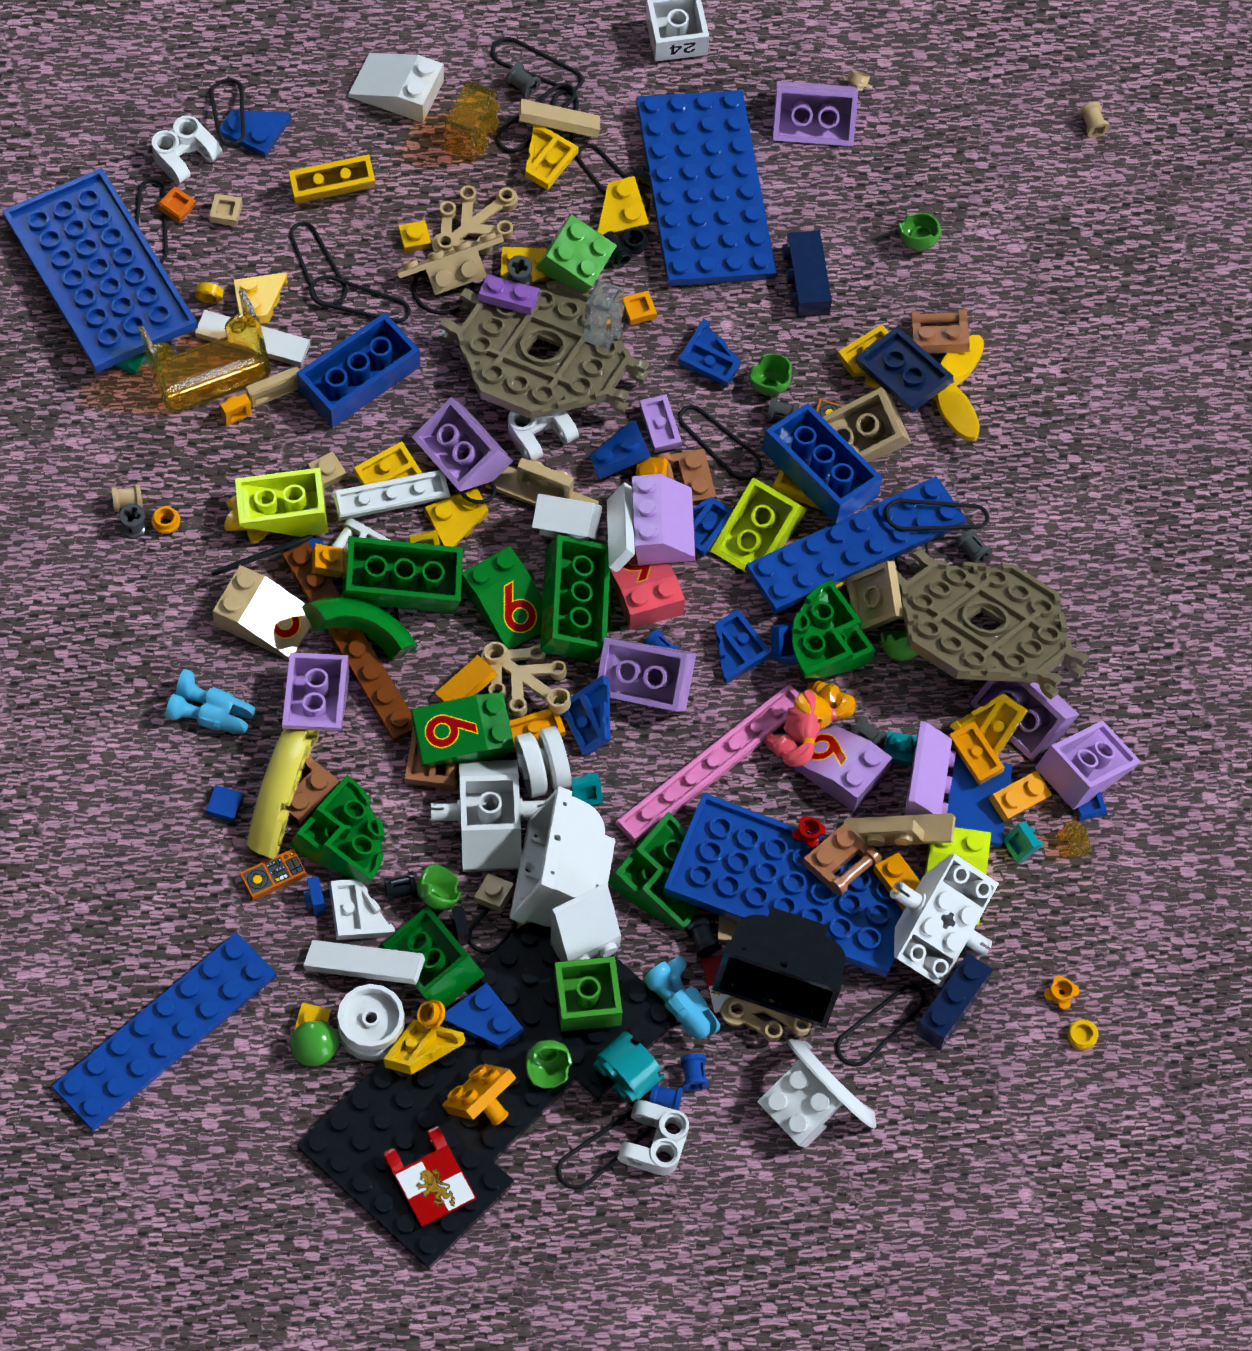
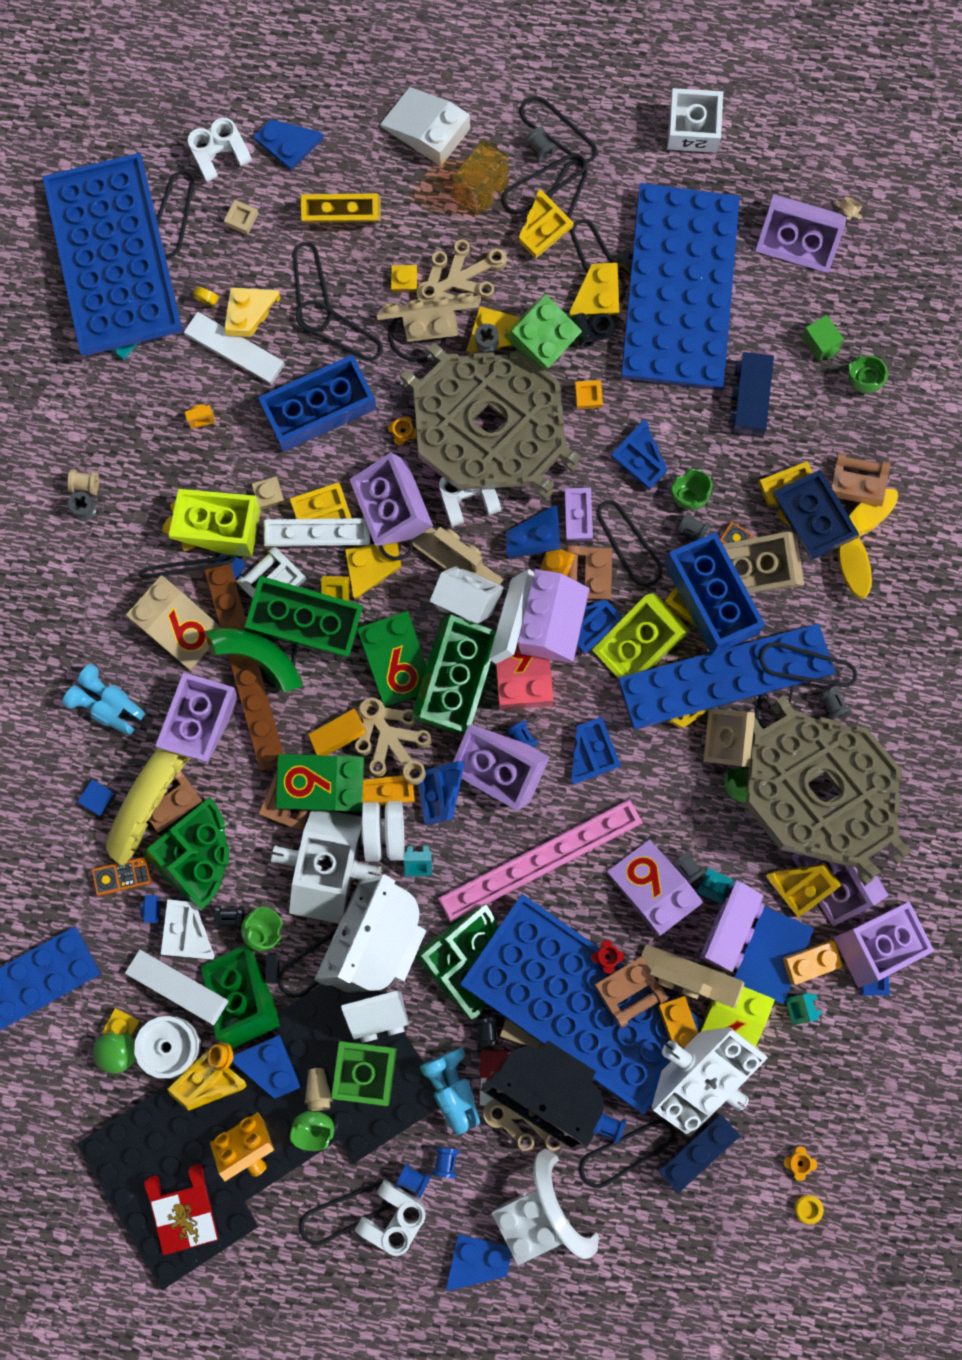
camera: 20 degrees right, 15 degrees up
(165, 513) = (110, 503): light orange plate -> none
(176, 204) = (199, 202): orange tile -> none
(211, 368) = (182, 372): clear yellow windscreen -> none
(241, 111) = (277, 124): black piece -> none
(272, 387) = (237, 402): tan tile -> none
(327, 560) = (241, 587): light orange plate -> none
(450, 374) = (402, 423): none -> light orange plate
(494, 893) = (312, 942): tan plate -> none
(509, 294) = (471, 358): medium lavender plate -> none
(541, 1024) = (317, 1090): none -> tan cone
(559, 118) = (563, 190): tan tile -> none
(604, 314) = (549, 403): clear brick -> none
(629, 1068) = (382, 1154): teal brick -> none
(754, 1162) = (477, 1262): none -> blue wing
(782, 644) = (637, 763): blue plate -> none
(811, 713) = (637, 842): hair -> none
(829, 635) = (675, 763): green brick -> none
(855, 1000) = (610, 1127): none -> blue bush
(865, 207) = (823, 338): none -> bright green brick
(976, 753) = (782, 913): light orange plate -> none
(1077, 840) = (854, 1017): clear yellow tile -> none

